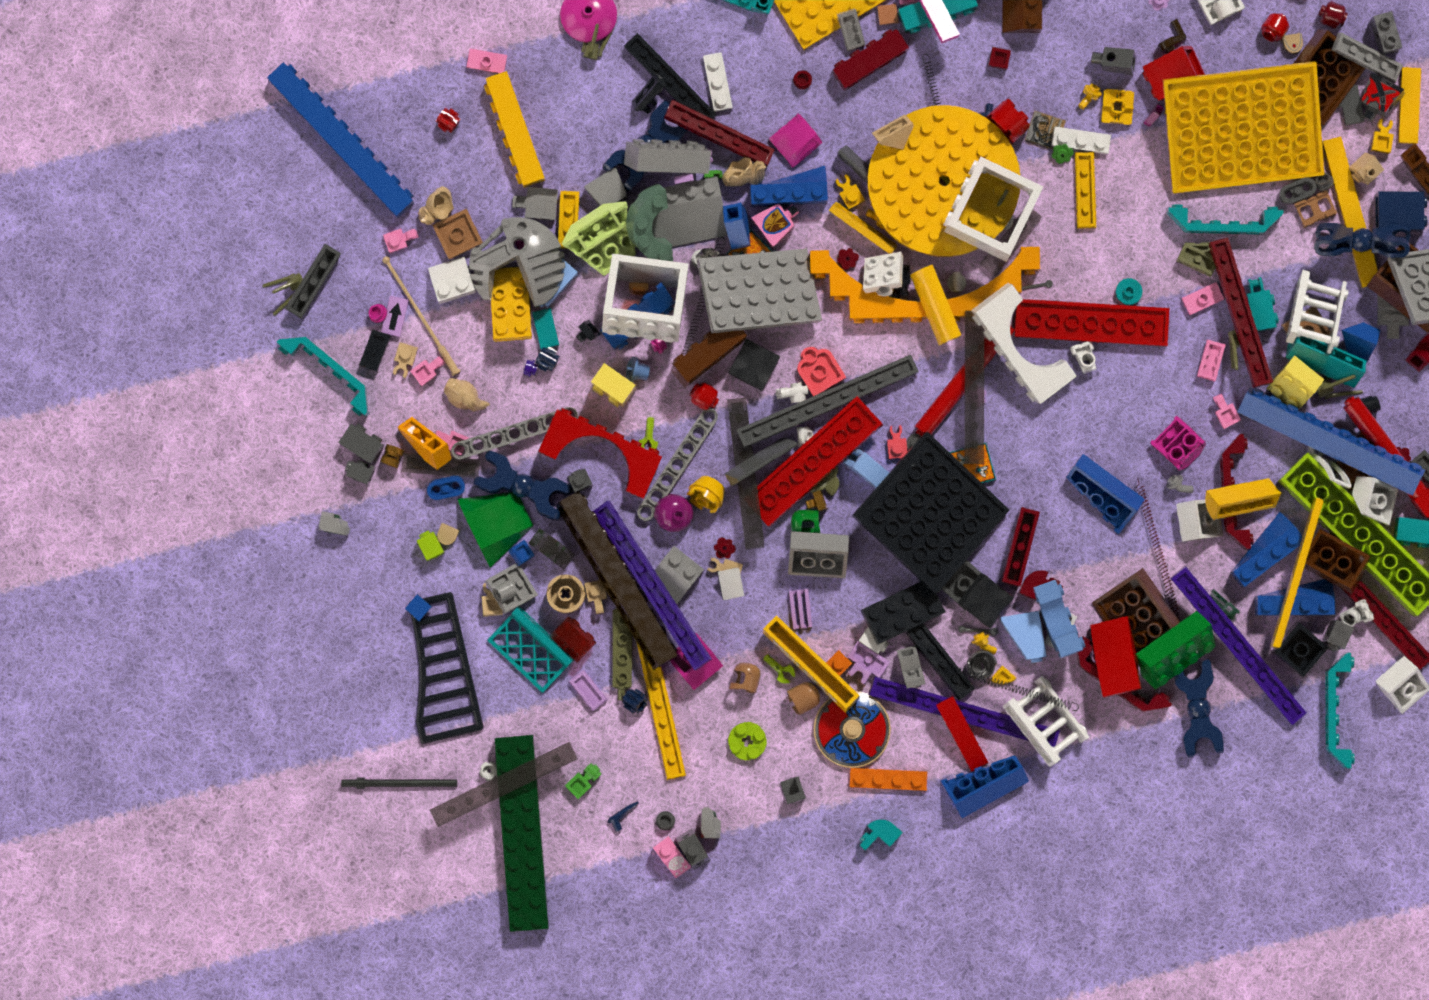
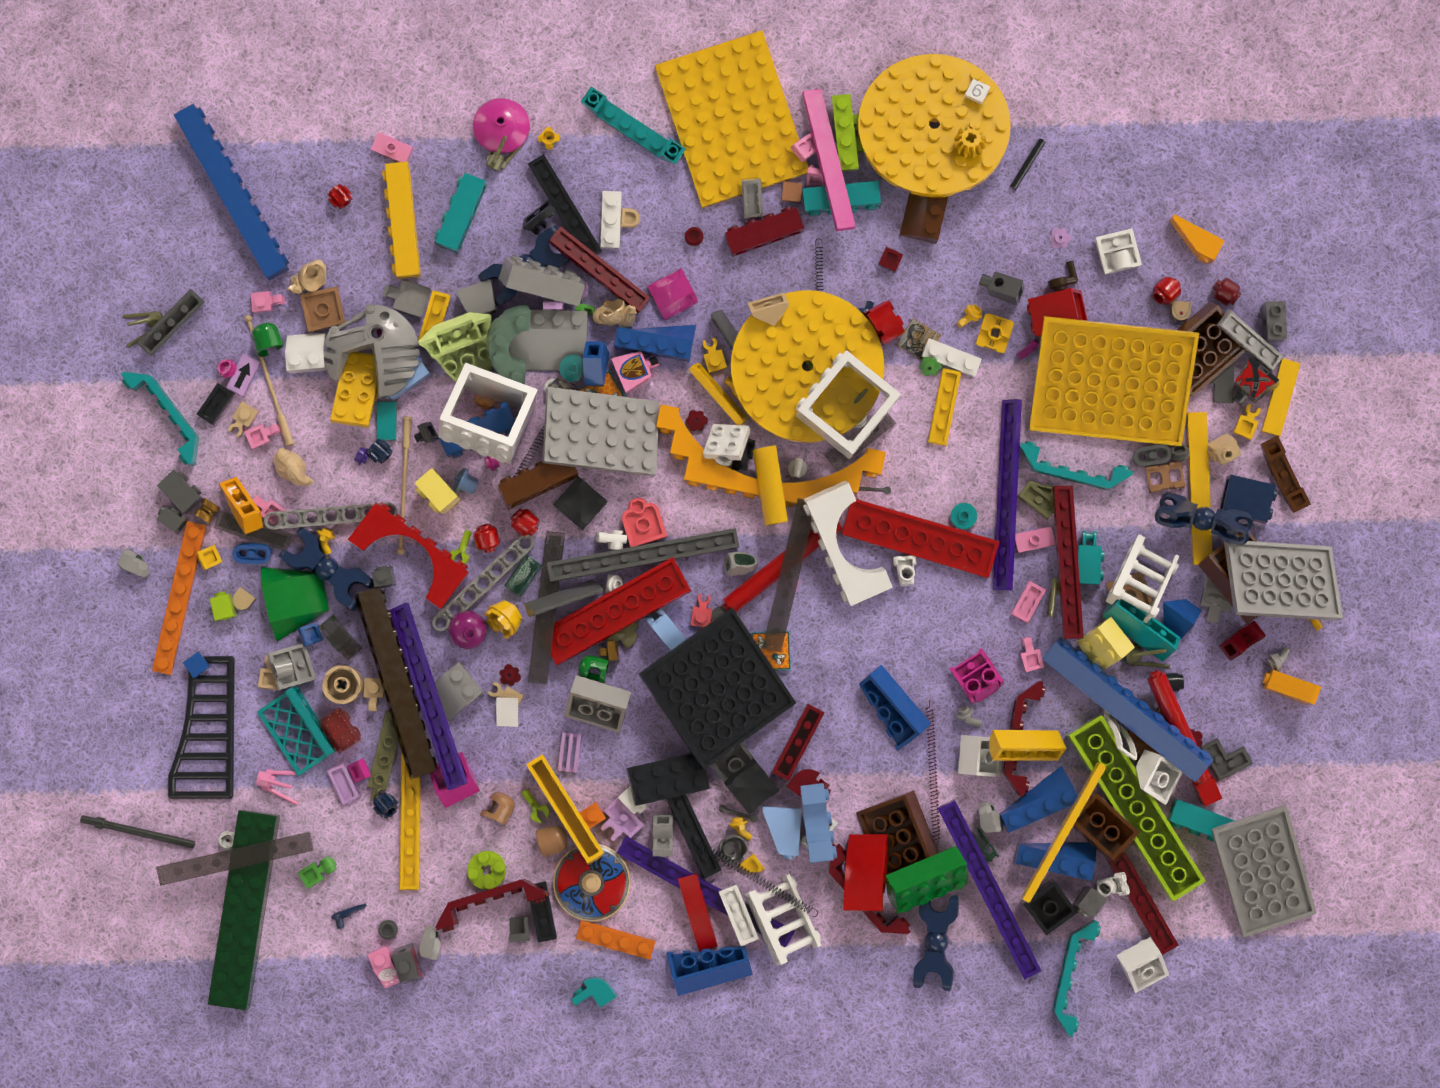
camera: 15 degrees right, 0 degrees up
(384, 548) = (179, 598): none -> orange plate
(404, 501) = (209, 557): none -> yellow plate
(409, 273) = (266, 336): none -> green helmet
(513, 703) = (267, 780): none -> bright pink plant
(514, 453) = (325, 535): none -> yellow plate
(570, 108) = (461, 212): none -> teal brick
(570, 348) = (405, 445): none -> tan piece
(600, 673) = (359, 770): none -> dark pink plate
(636, 10) = (548, 132): none -> yellow plate
(670, 419) = (486, 538): none -> red head
(714, 448) = (523, 575): none -> clear green tile
(715, 235) = (572, 368): none -> teal piece
(722, 796) = (449, 917): none -> dark red slope
(735, 76) = (629, 218): none -> tan tile
(810, 768) = (543, 917): none -> black plate
(922, 388) = (739, 563): none -> light grey rock
(1002, 726) = (738, 915): none -> white plate
(1166, 260) = (1007, 494): none -> dark purple plate
(1222, 577) = (989, 818): none -> light grey rock

